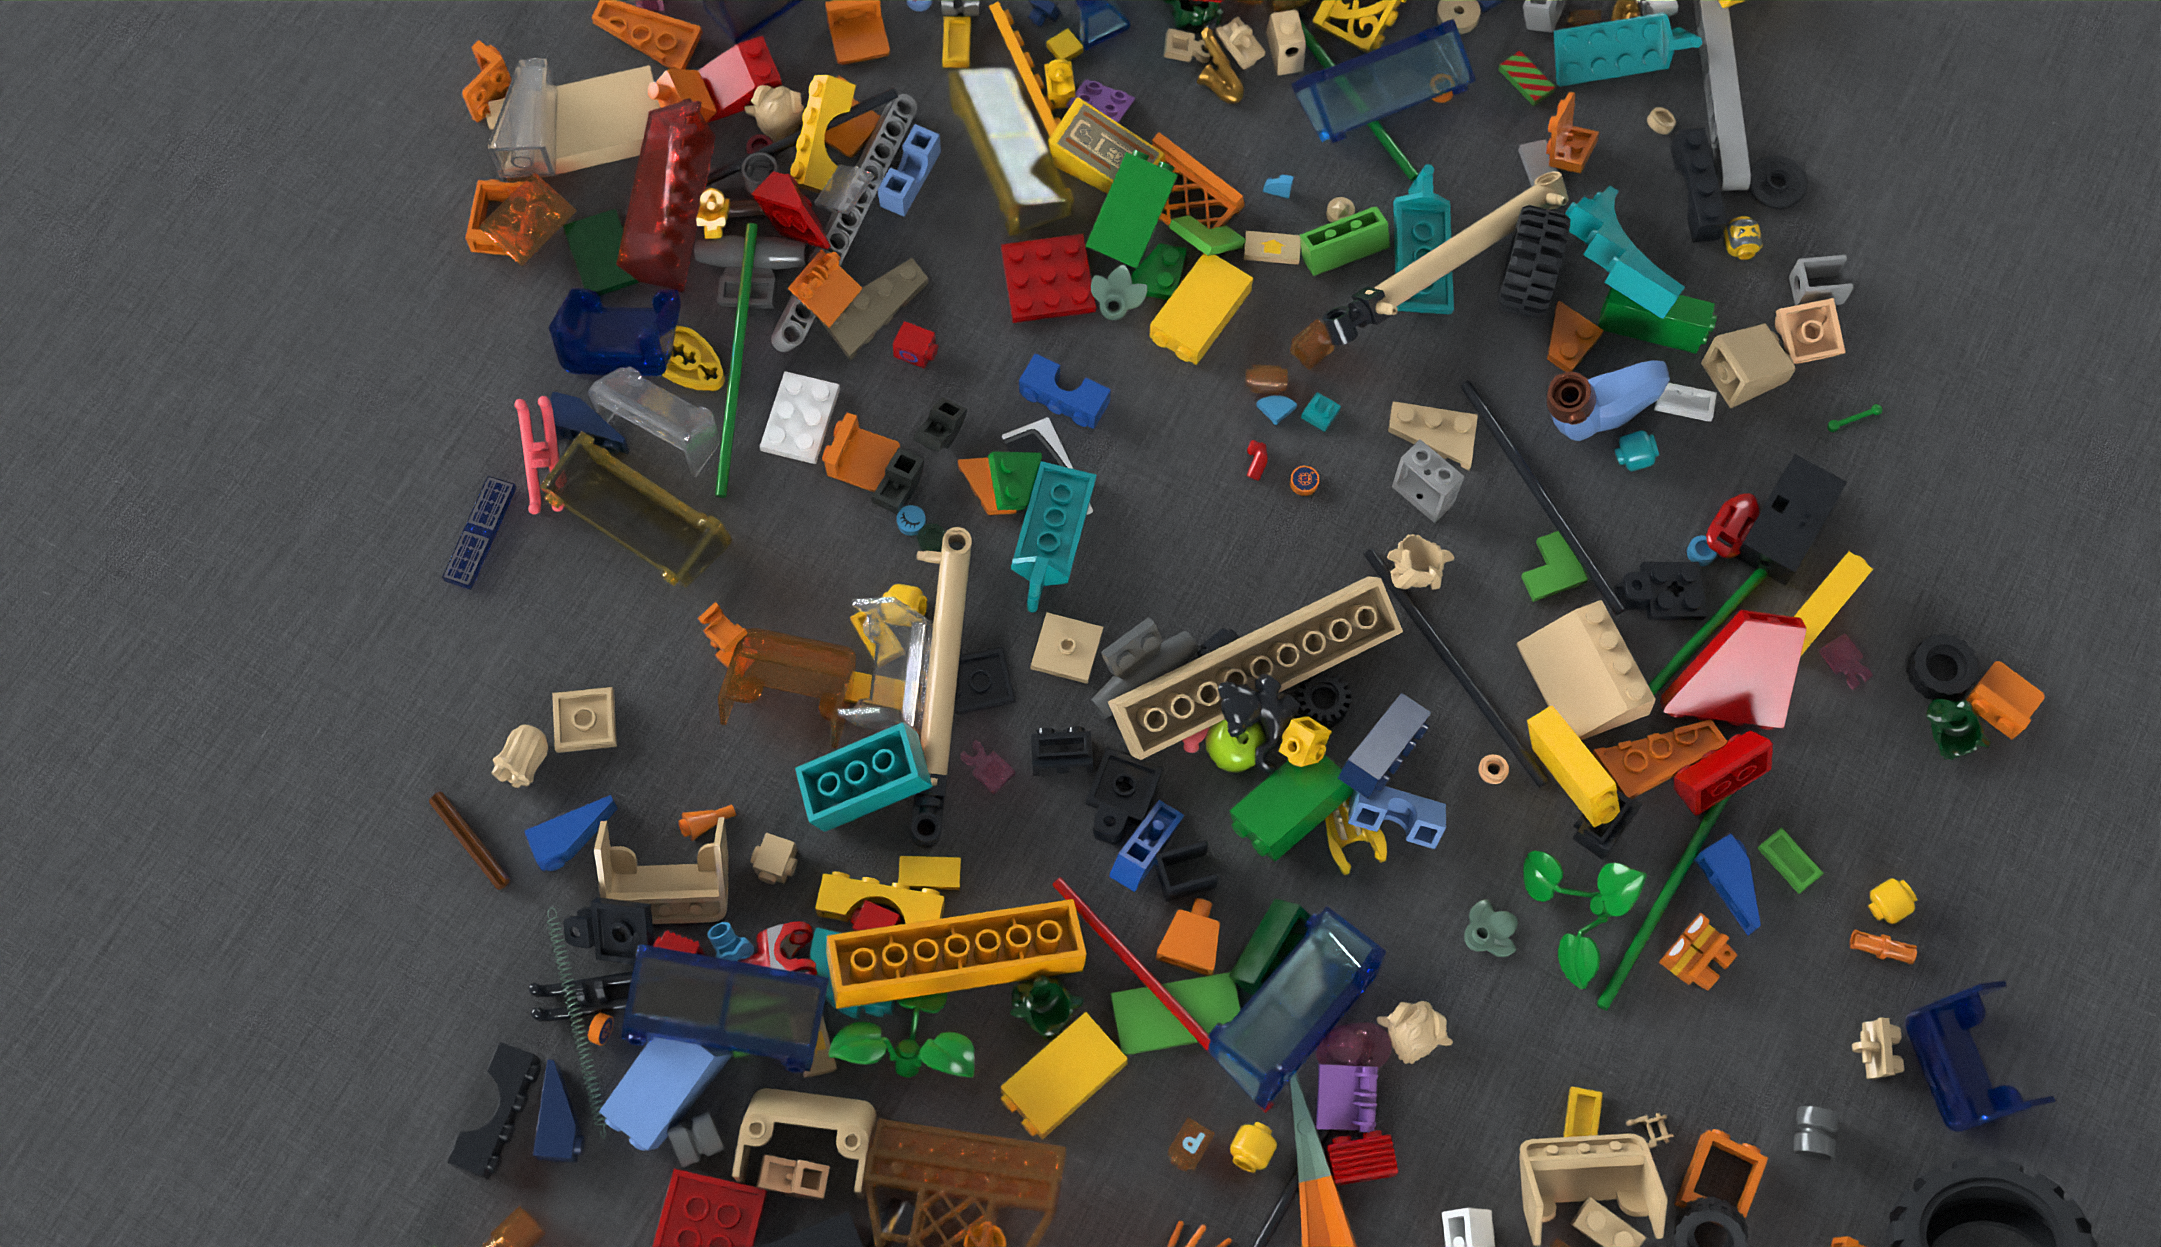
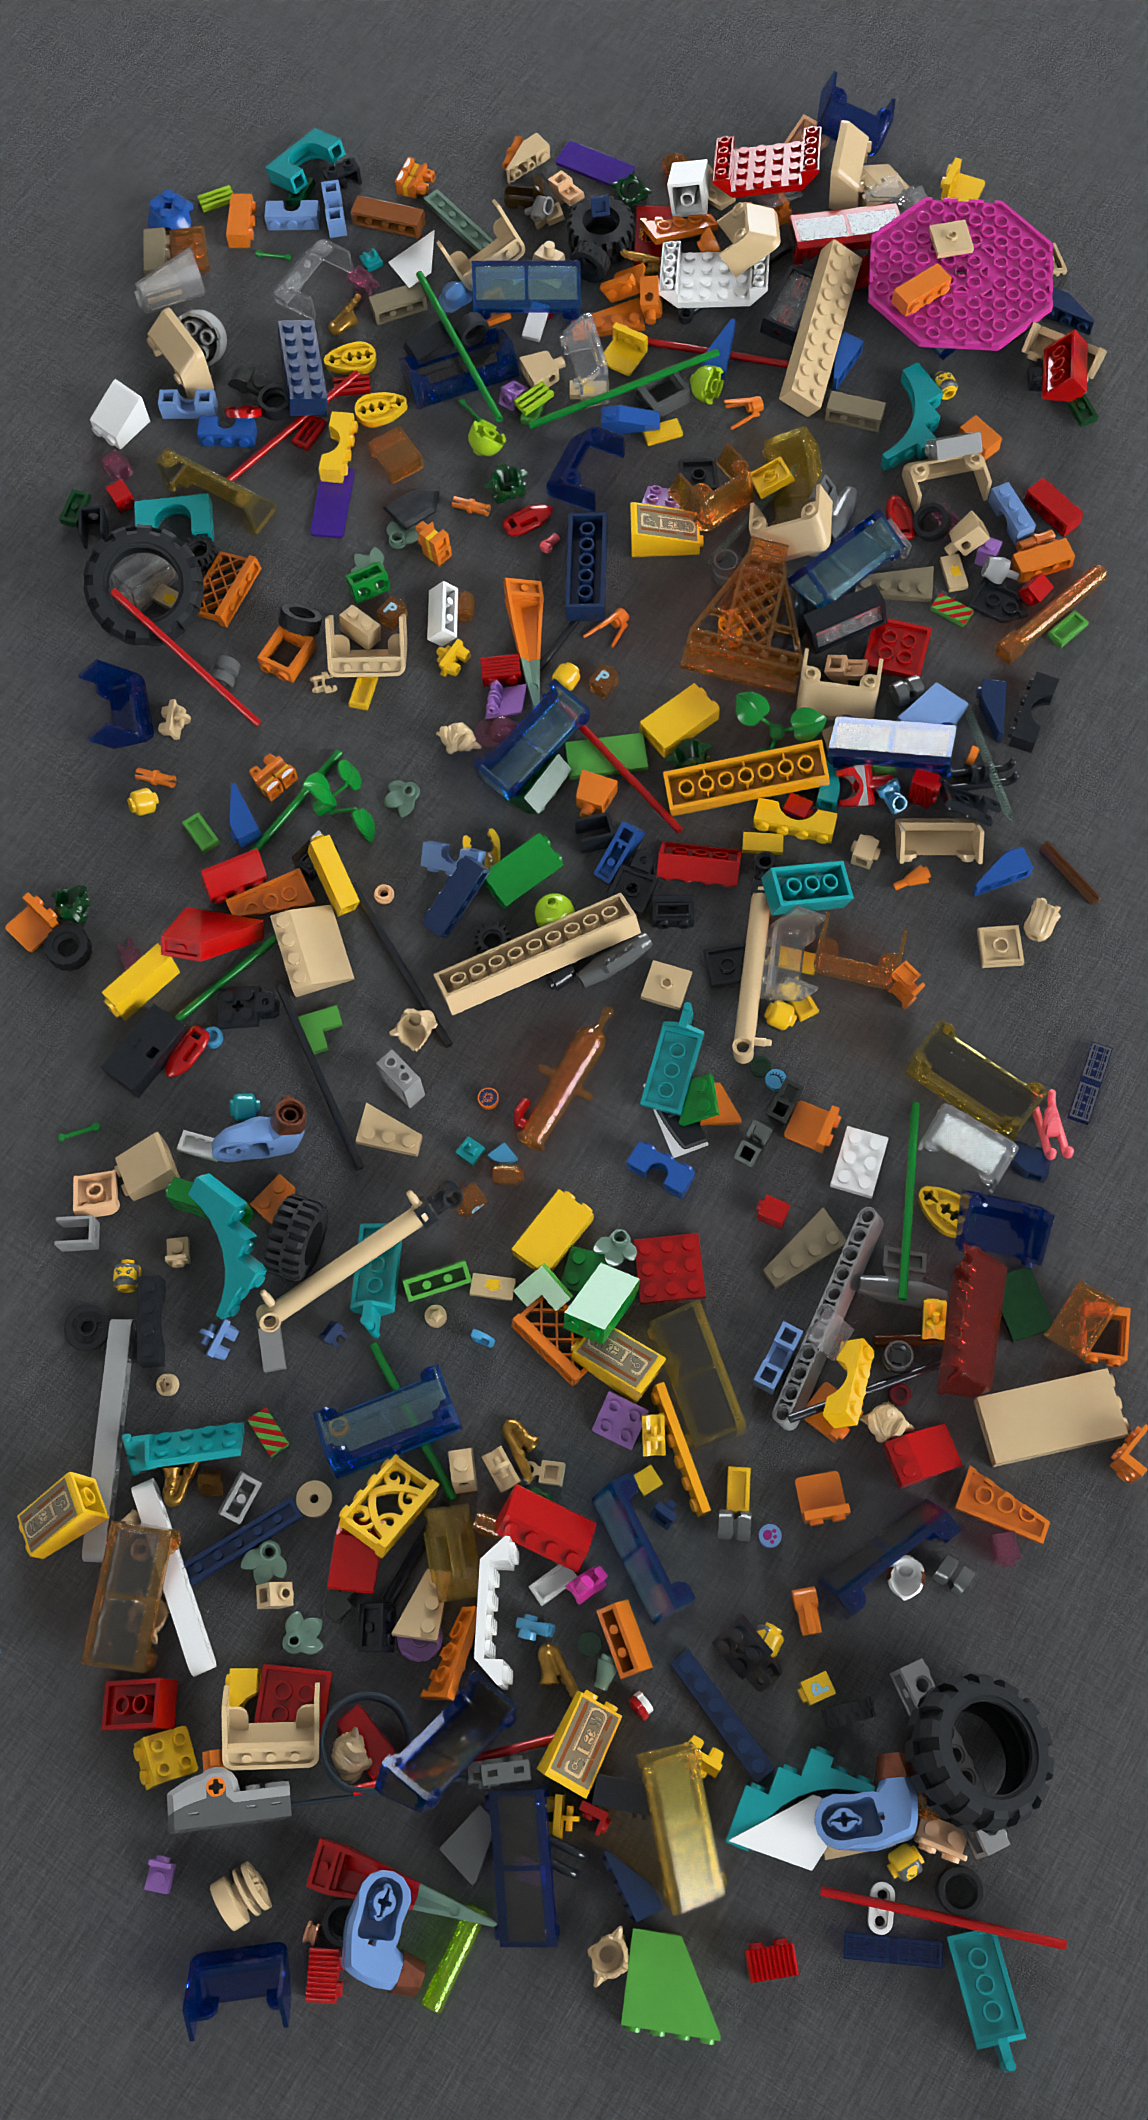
camera: 170 degrees left, 0 degrees up
(527, 123) = (1089, 1393): clear slope -> none
(680, 85) = (966, 1434): orange torso -> none
(790, 210) = (869, 1313): red slope -> none
(825, 287) = (843, 1250): orange hinge -> none
(989, 770) = (721, 904): clear pink plate -> none
(1024, 832) = (699, 864): none -> red slope
(1199, 495) = (565, 1083): none -> clear orange piece
(1244, 707) = (548, 915): black animal -> none
(1304, 741) = (510, 894): yellow brick -> none
(1449, 1166) = (450, 655): none -> yellow hips
(1468, 183) = (330, 1333): none -> dark blue tile
(1569, 144) = (242, 1359): orange bracket -> none
(1614, 170) = (215, 1349): none -> medium blue hips
(1684, 268) = (178, 1252): none -> tan bracket
(1890, 1134) = (185, 657): none -> red piece

